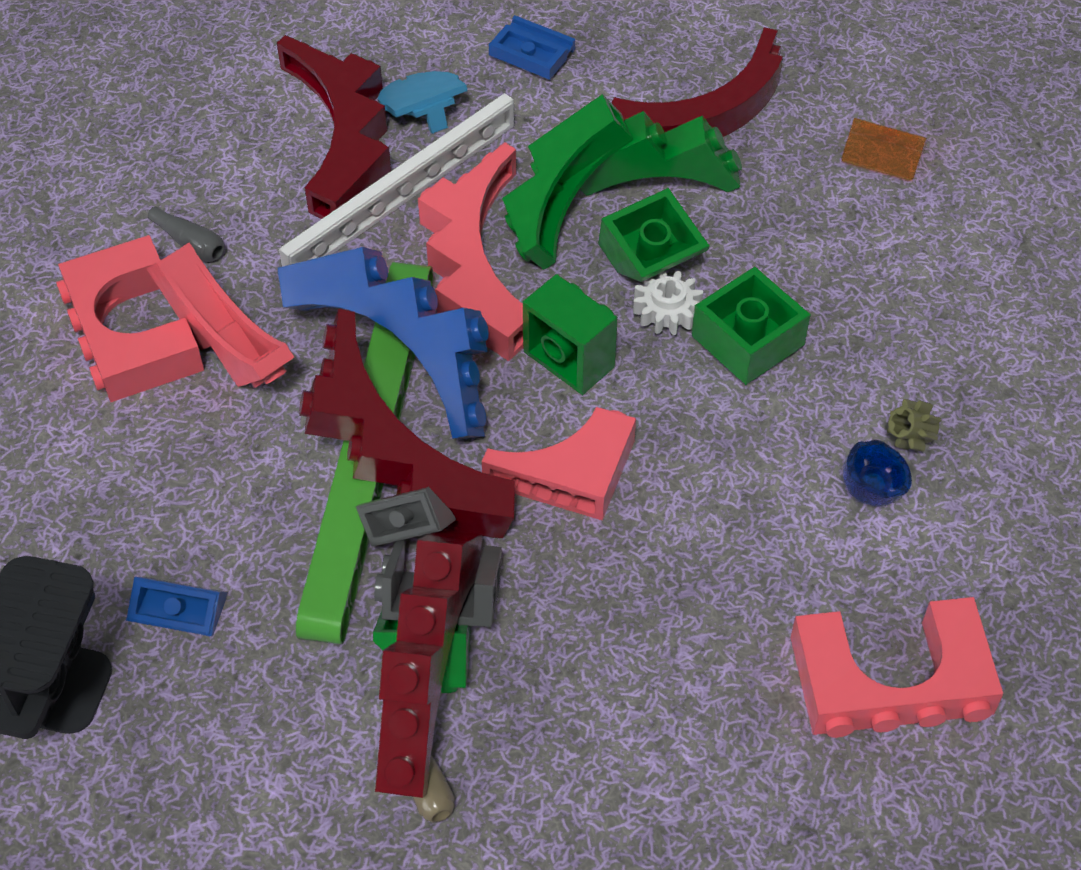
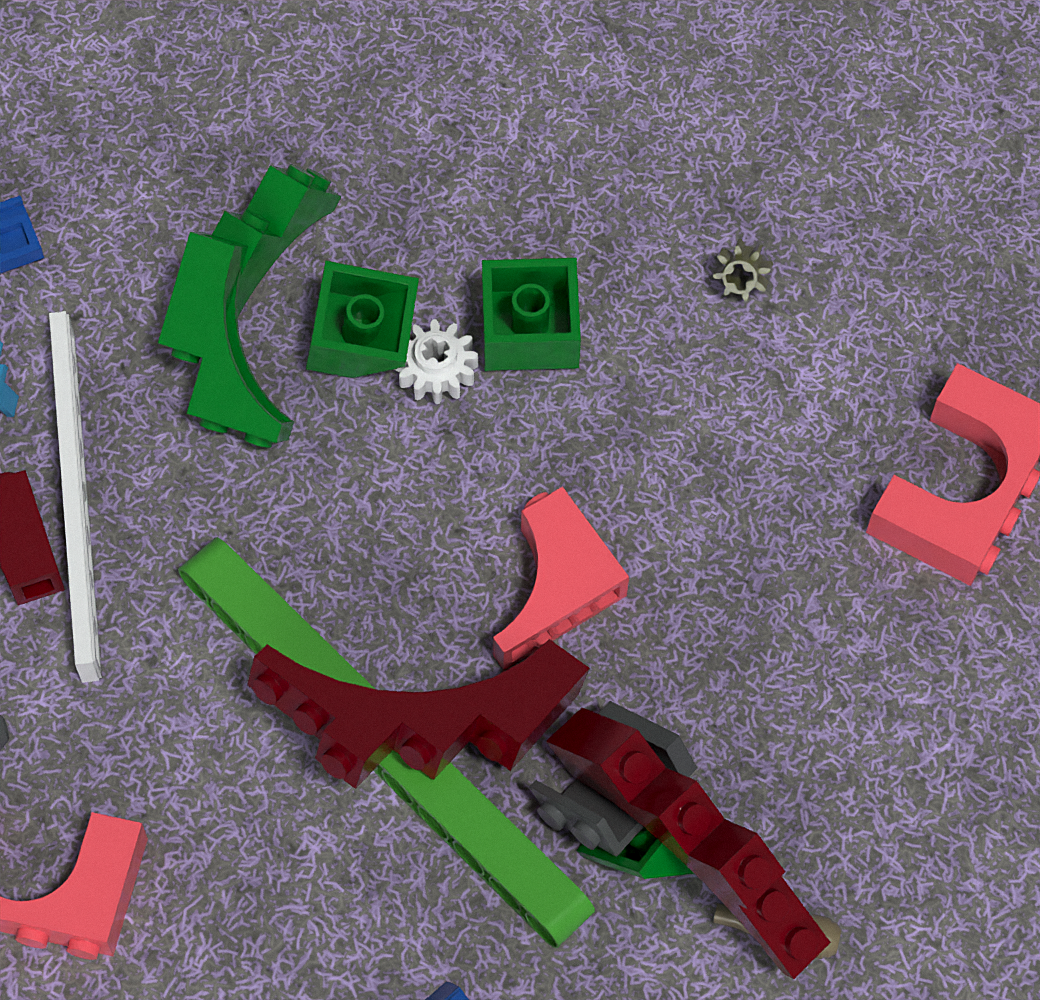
camera: 55 degrees left, 10 degrees up
(216, 320) = (125, 784): coral arch -> none
(404, 516) = (526, 763): dark grey slope -> none
(407, 308) = (208, 623): blue arch -> none
(457, 253) = (277, 522): coral arch -> none
(569, 333) = (418, 472): green brick -> none
(727, 106) = (236, 159): dark red arch -> none
(872, 482) = (765, 348): clear blue helmet -> none
(884, 149) = (407, 42): clear orange panel -> none

